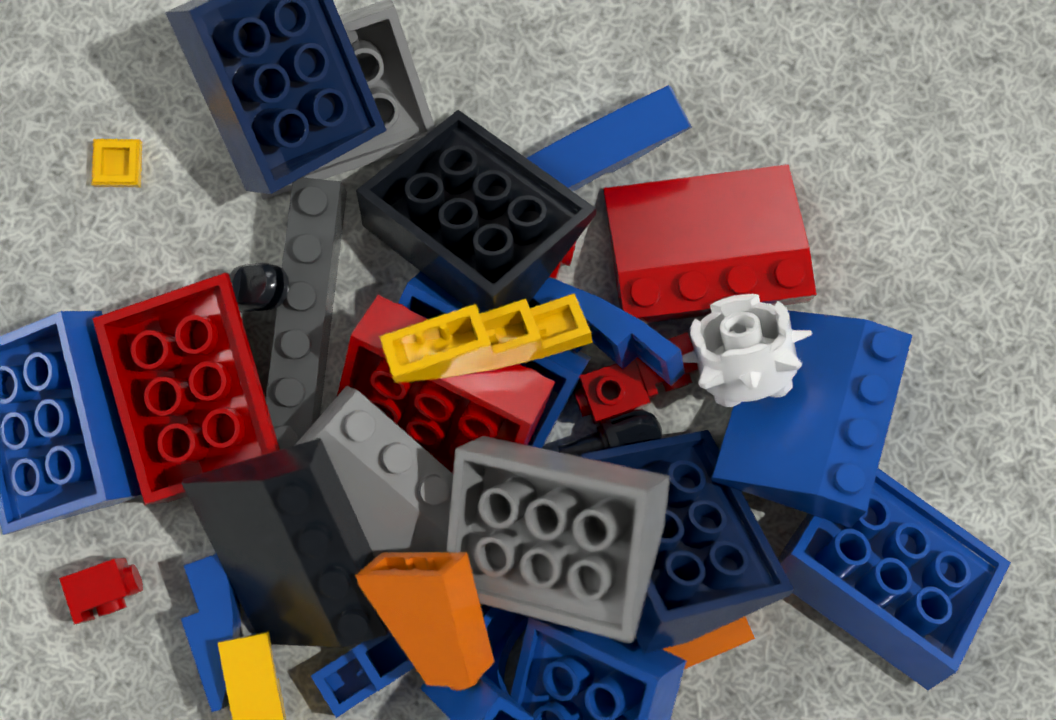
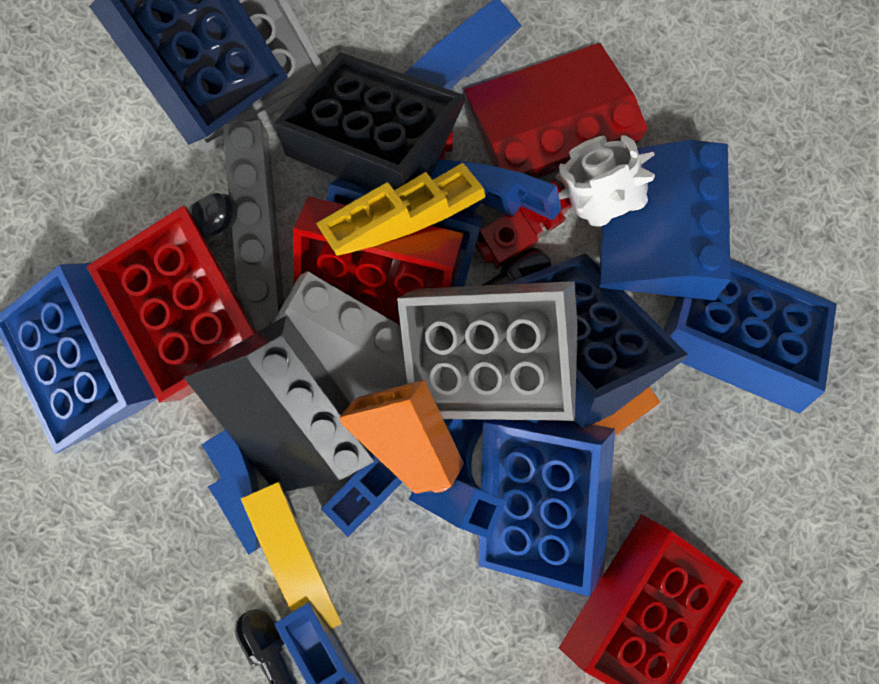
camera: 20 degrees left, 0 degrees up
(100, 588) = (140, 477): red brick -> none
(117, 163) = (84, 148): yellow tile -> none

